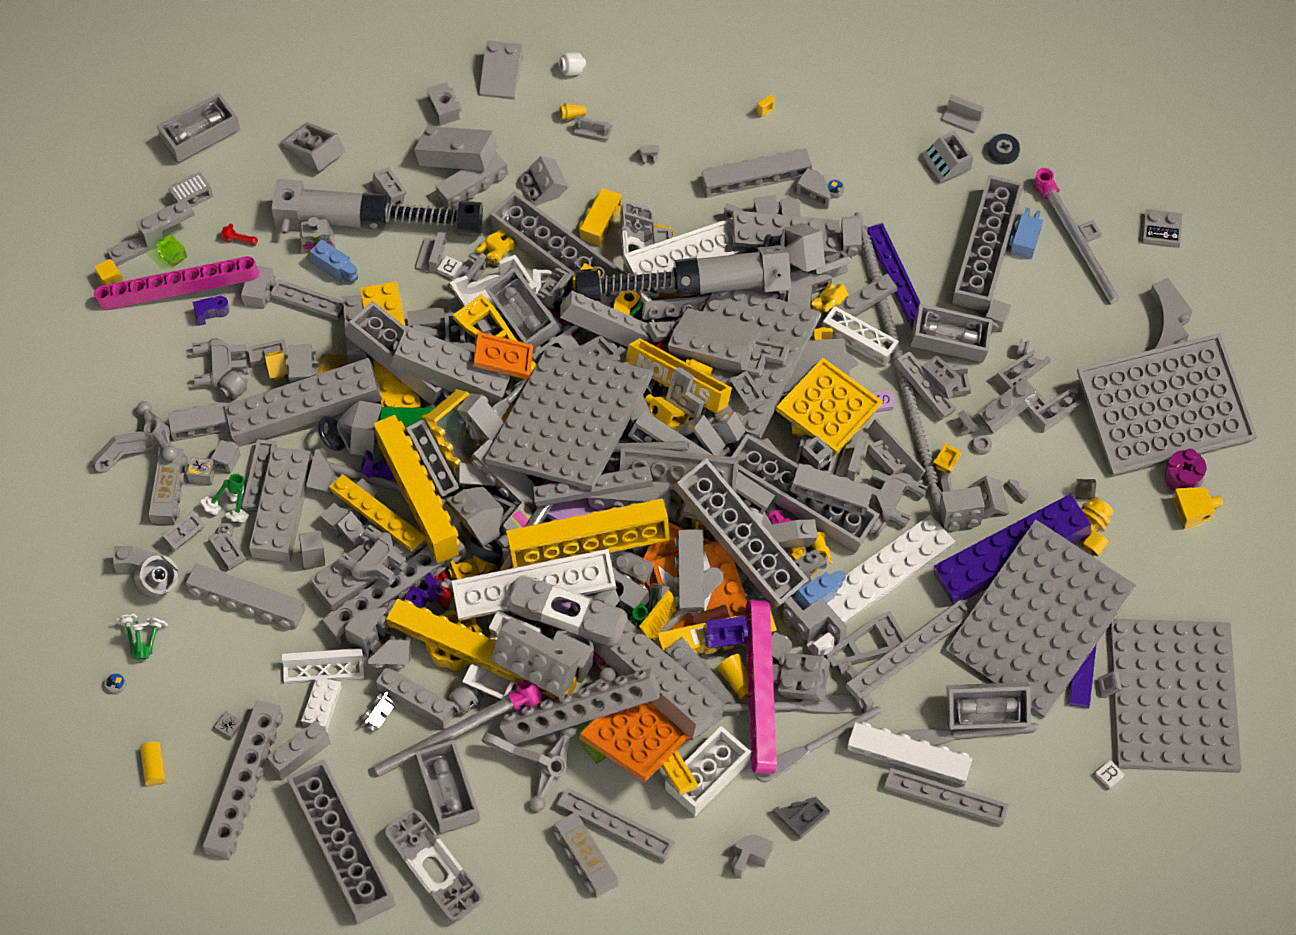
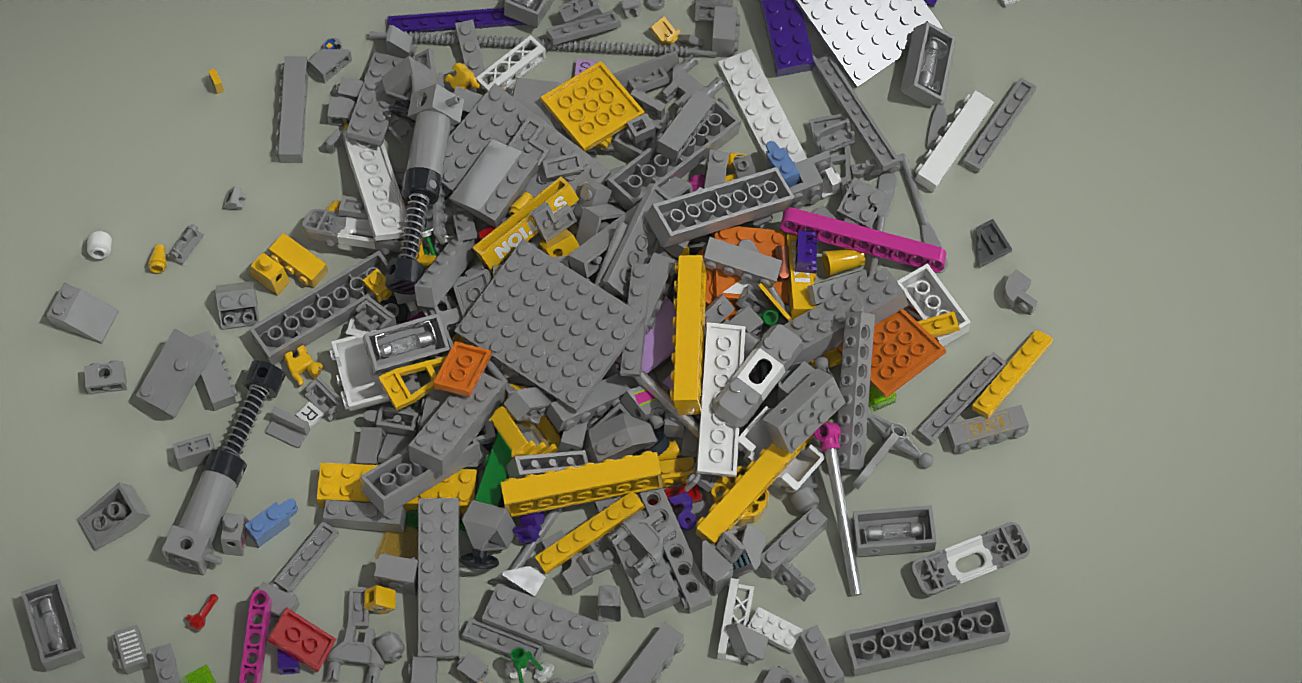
camera: 75 degrees left, 5 degrees up
(223, 312) = (301, 640): none -> red tile
(298, 680) = (747, 642): none -> light grey slope
(385, 631) = (730, 545): none -> light grey bracket
(582, 191) = (266, 272): none -> yellow torso
(653, 864) = (1012, 374): none -> yellow plate
(872, 635) = (834, 137): none -> light grey hinge

